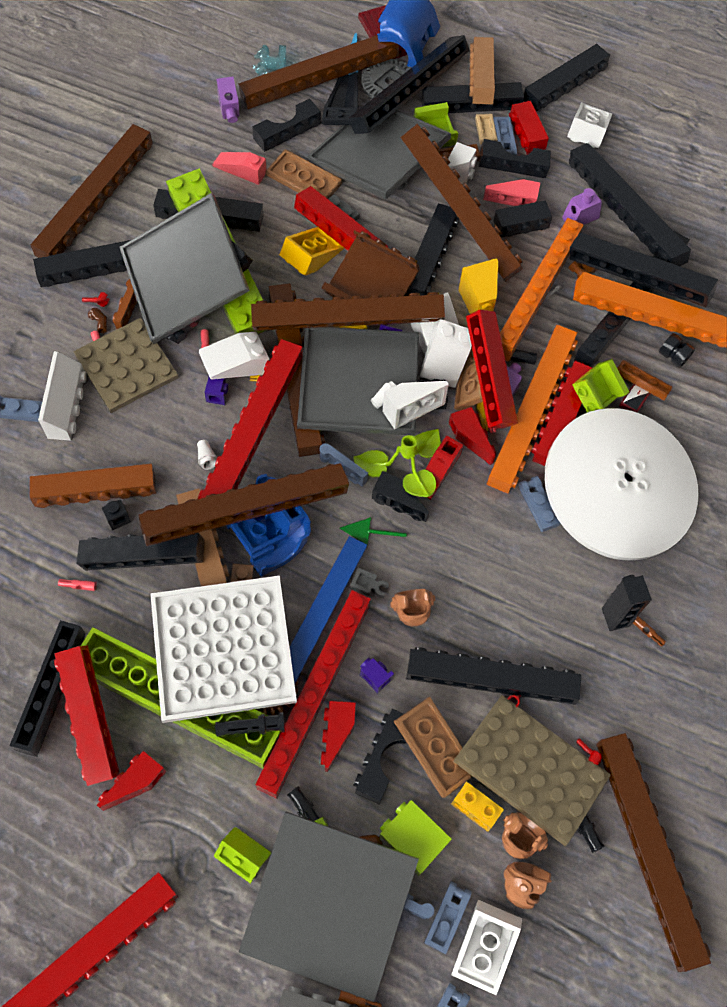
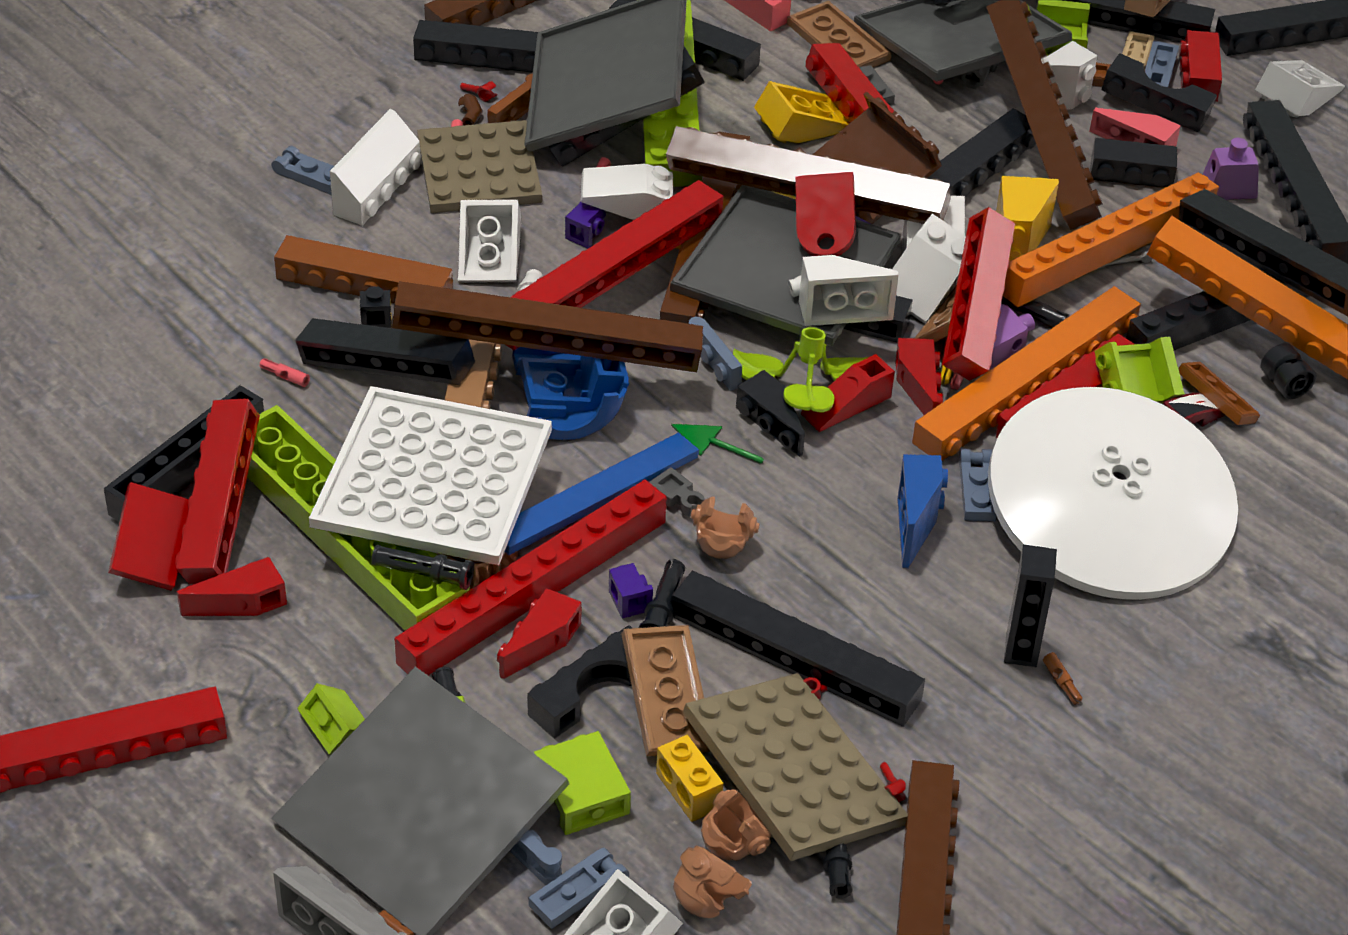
camera: 25 degrees right, 20 degrees down
(56, 767) = (149, 536): none -> red tile
(163, 429) = (489, 241): none -> white slope
(372, 337) = (825, 210): none -> red tile
(401, 682) = (660, 610): none -> black pin
(517, 538) = (919, 501): none -> blue slope

